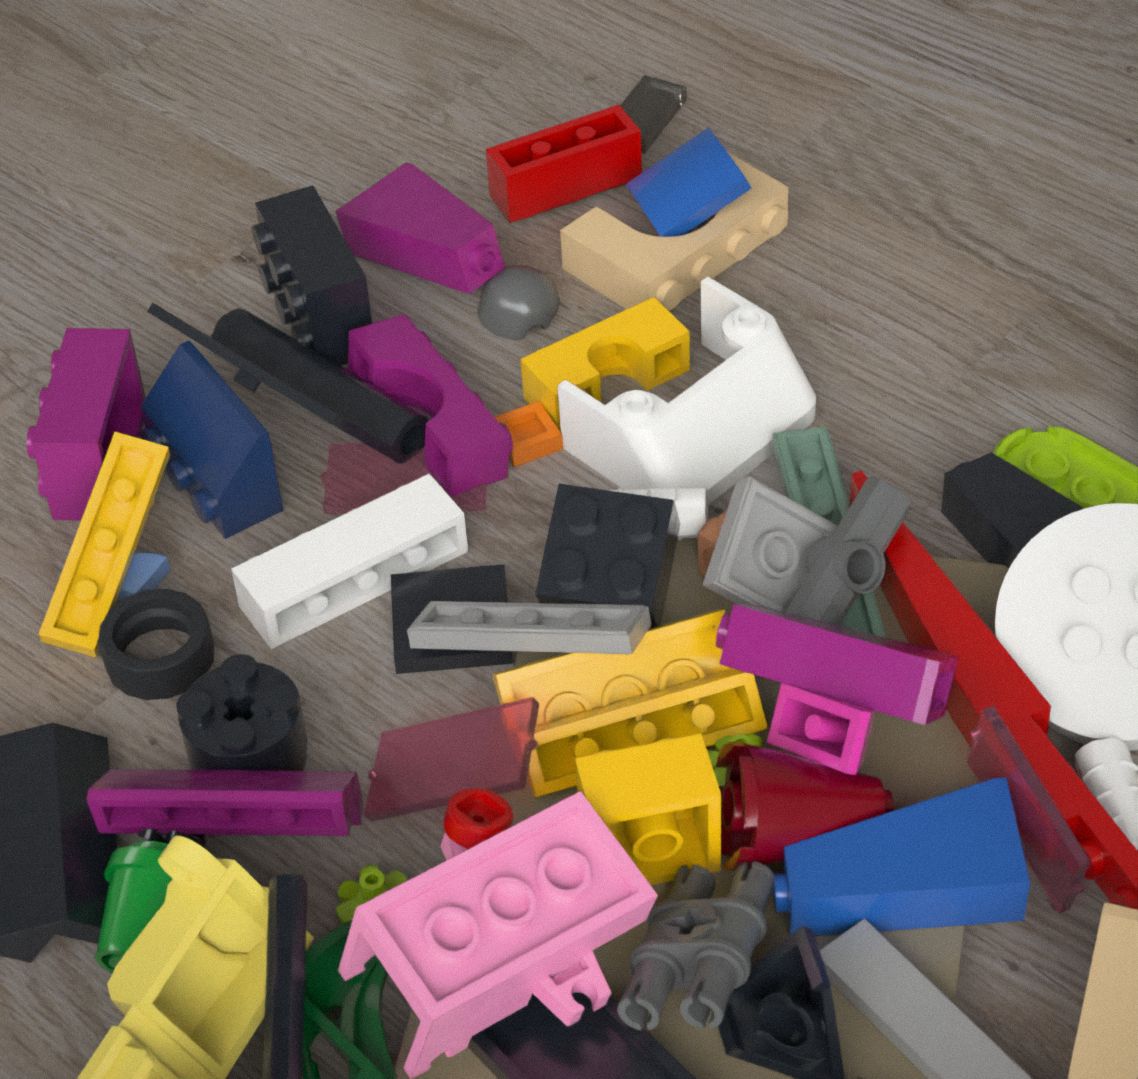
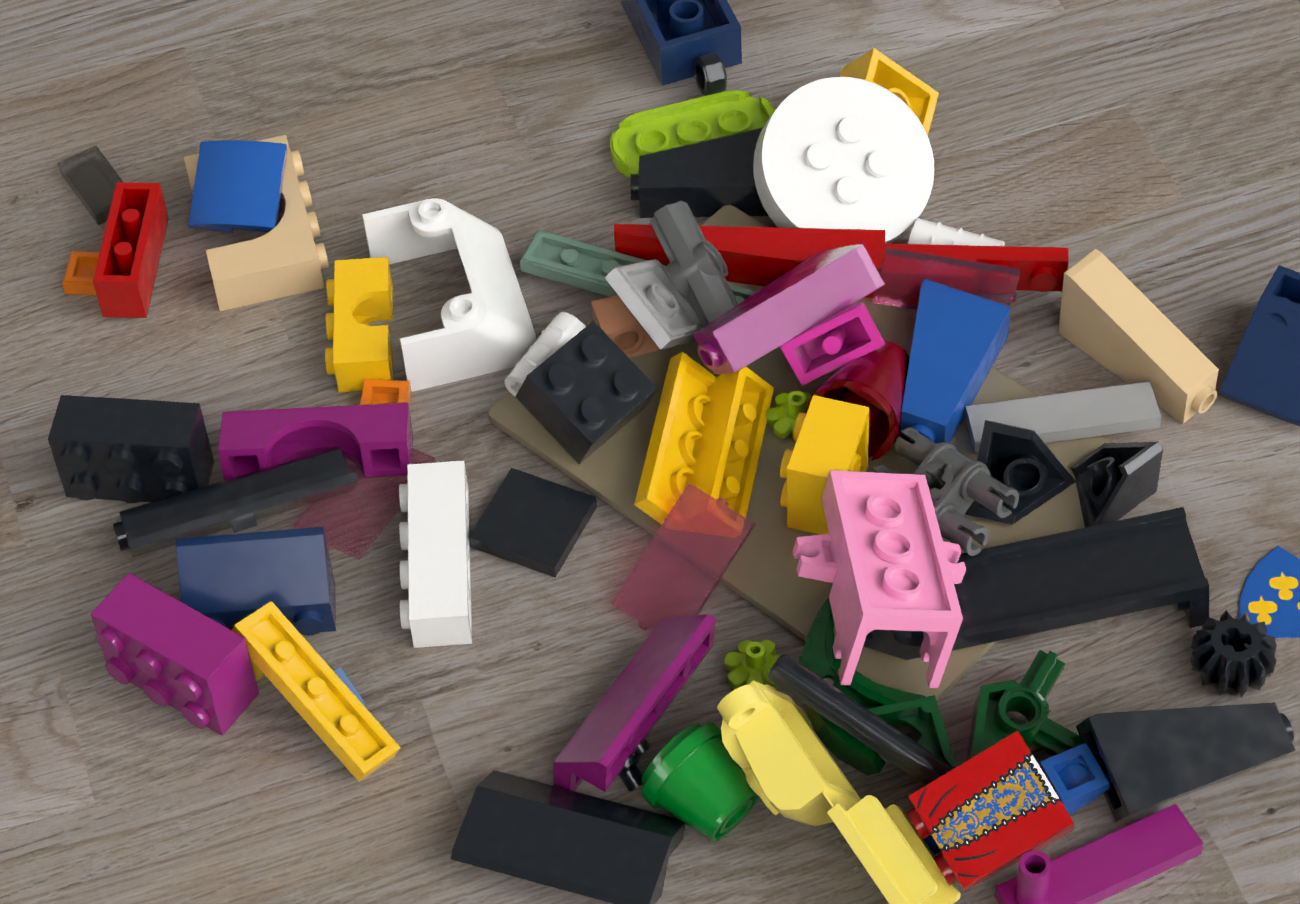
camera: 60 degrees left, 5 degrees up
(149, 612) = (421, 673): black tyre -> none
(243, 719) = (559, 674): black brick -> none
(422, 231) = (140, 356): magenta slope -> none
(476, 816) = (813, 534): red tile -> none
(517, 301) = (244, 349): dark grey hair -> none
(530, 627) = (609, 466): light grey tile -> none

